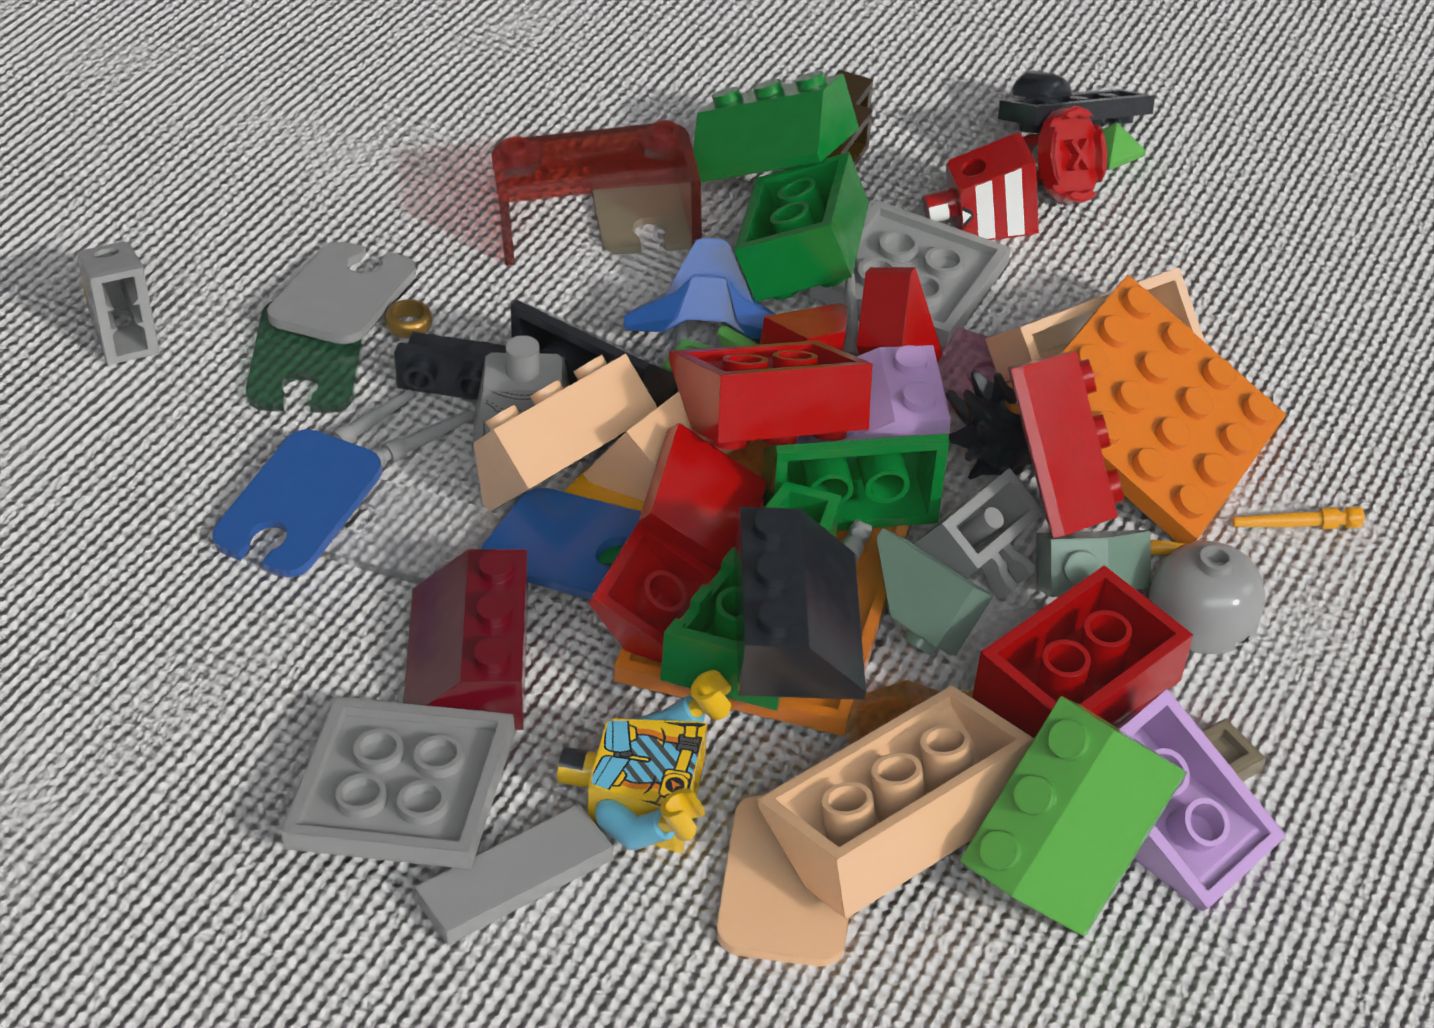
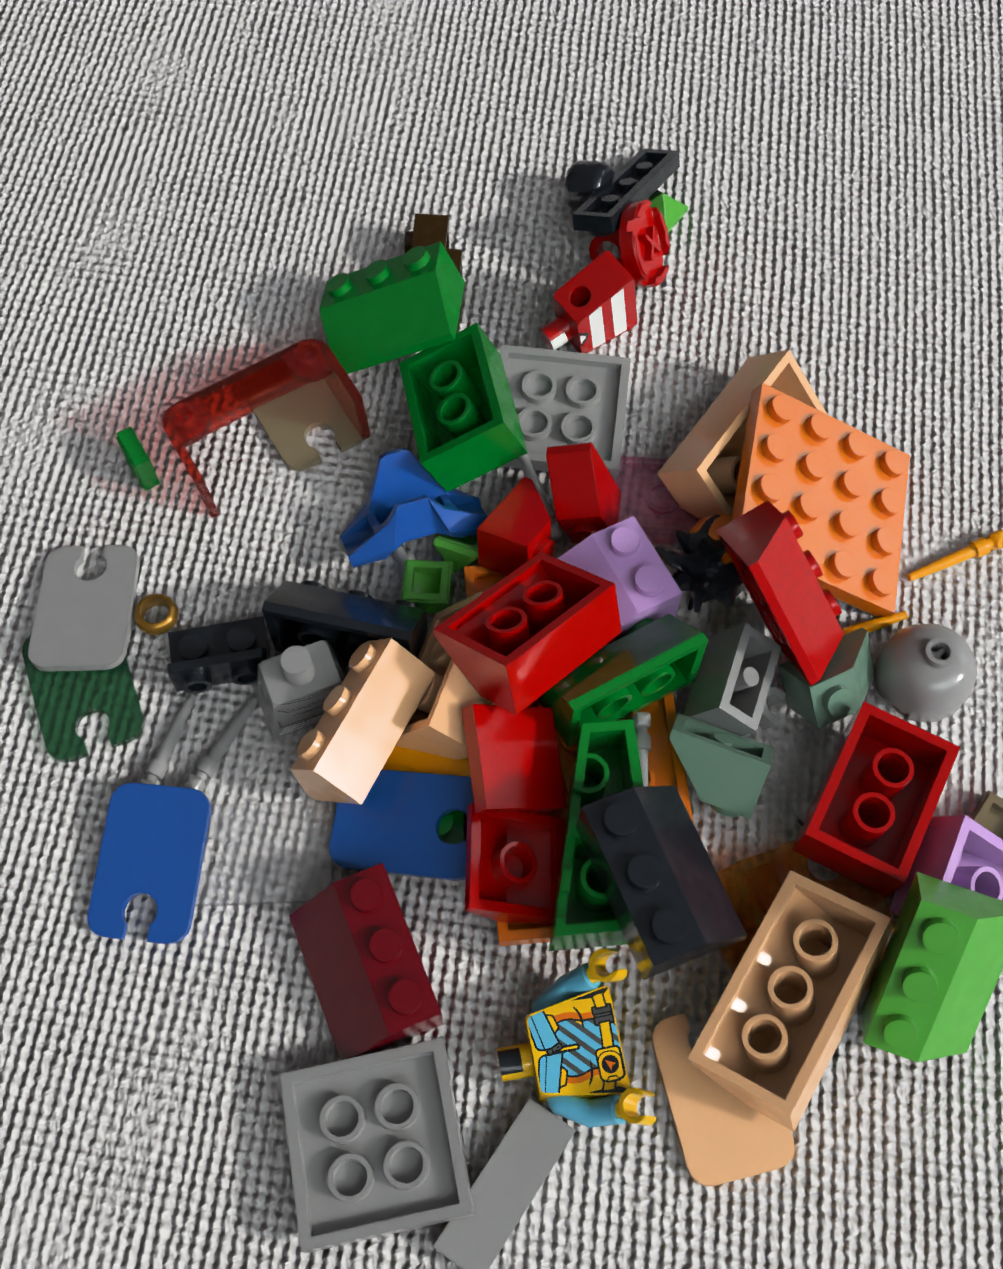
camera: 20 degrees left, 20 degrees up
(455, 190) = (137, 458): none -> green tile

